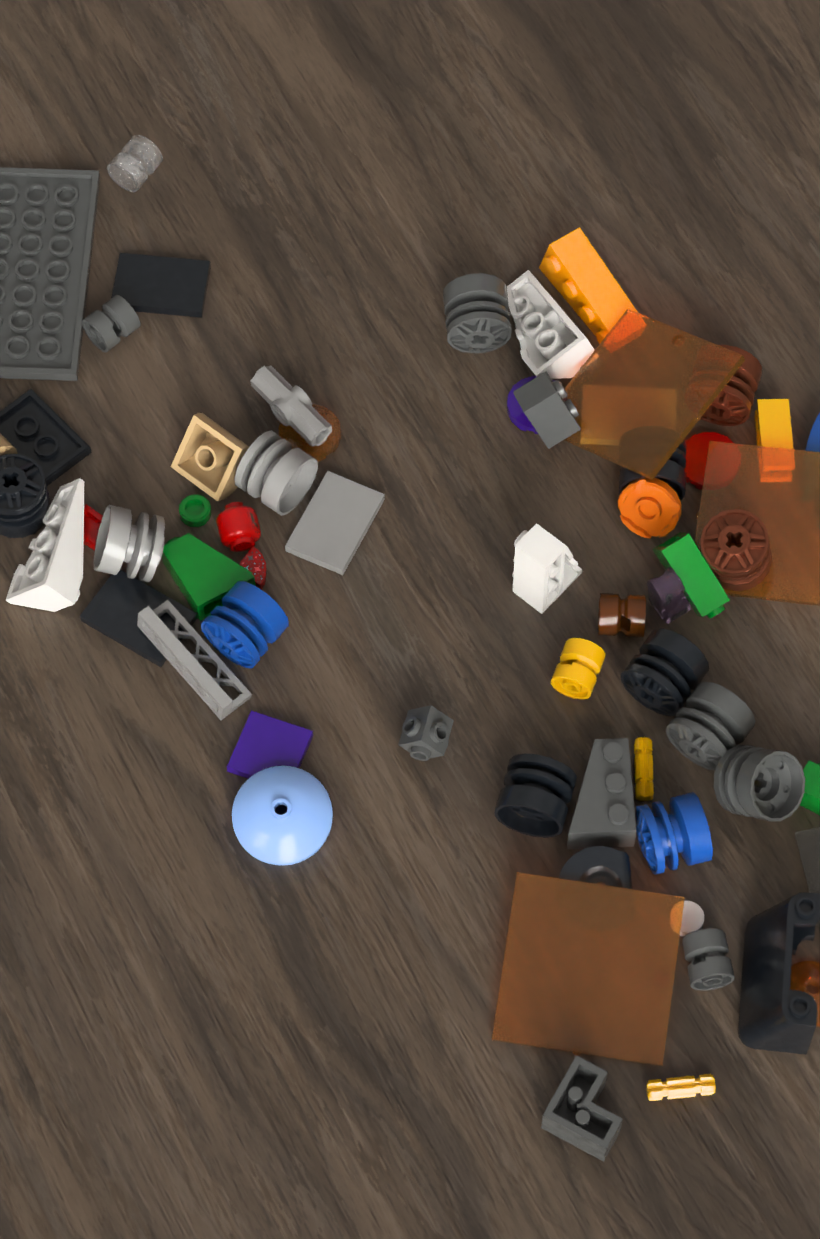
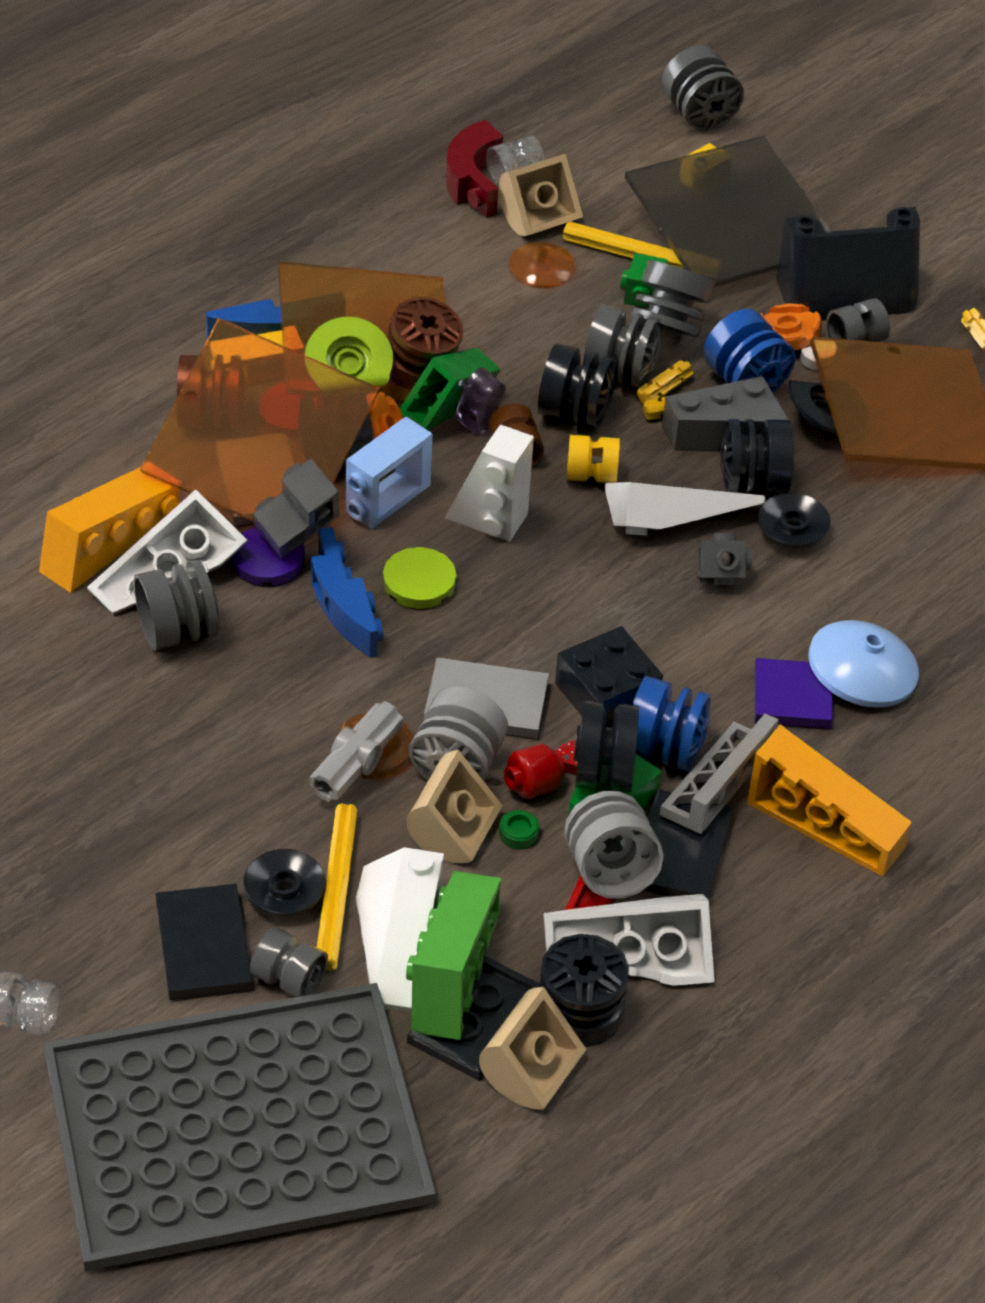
camera: 110 degrees left, 15 degrees down
(79, 420) = (452, 953): none -> bright green wedge
(131, 723) = (825, 803): none -> light orange wedge
(134, 409) = (392, 912): none -> white wedge
(181, 376) = (337, 883): none -> yellow axle
(187, 328) = (284, 870): none -> black dish
(206, 547) = (606, 746): none -> black wheel
(317, 606) = (604, 671): none -> black brick
(459, 440) = (344, 597): none -> blue slope
(462, 799) = (794, 520): none -> black dish
(482, 507) = (419, 577): none -> lime tile
(509, 711) = (659, 506): none -> white wedge
(590, 496) = (401, 447): none -> light blue window
(675, 766) = (665, 381): none -> yellow axle
(726, 481) = (353, 348): none -> lime hat
(726, 899) = (794, 324): none -> orange tile

